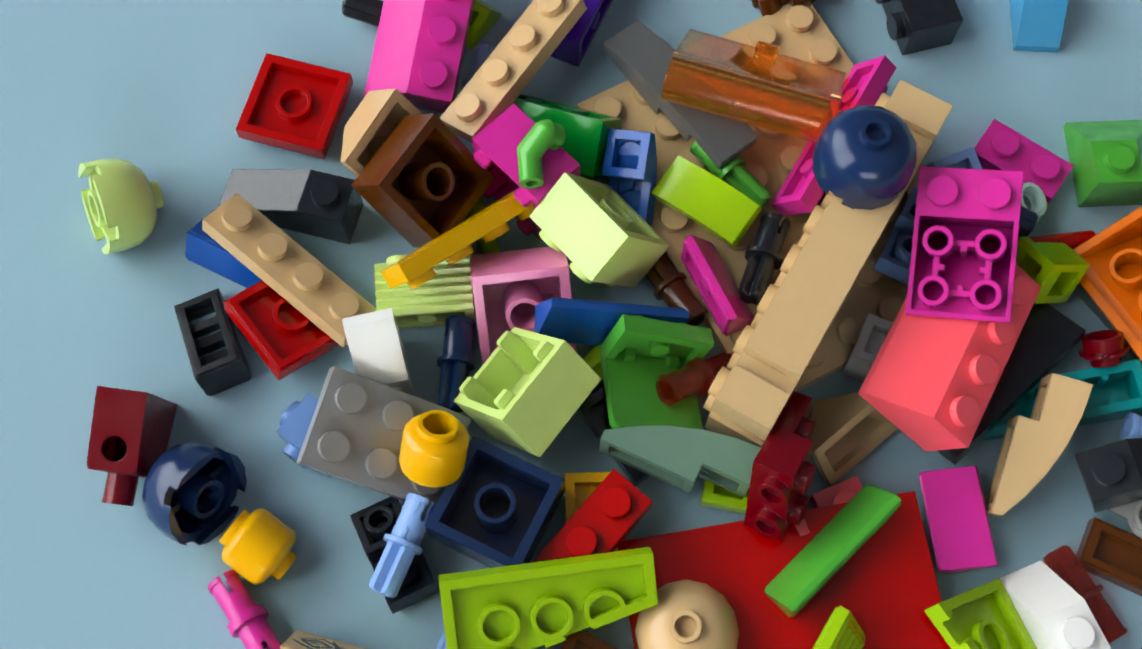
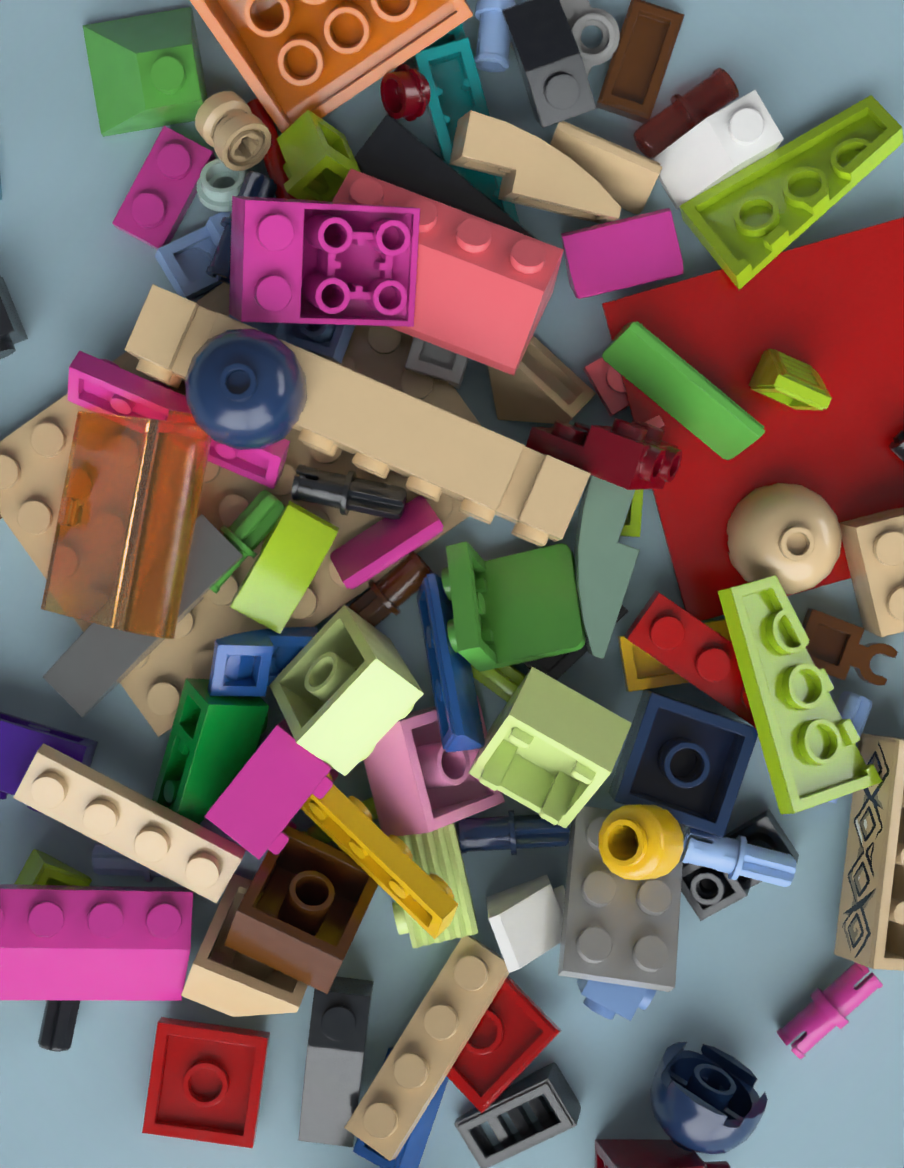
camera: 100 degrees left, 20 degrees up
(258, 546) = (751, 1013): yellow head -> none
(530, 150) = (269, 785): bright green arm -> none
(691, 380) = (500, 555): clear red axle -> none
(1033, 519) = (619, 170): none -> tan slope
(1070, 210) = (233, 130): none -> tan wheel

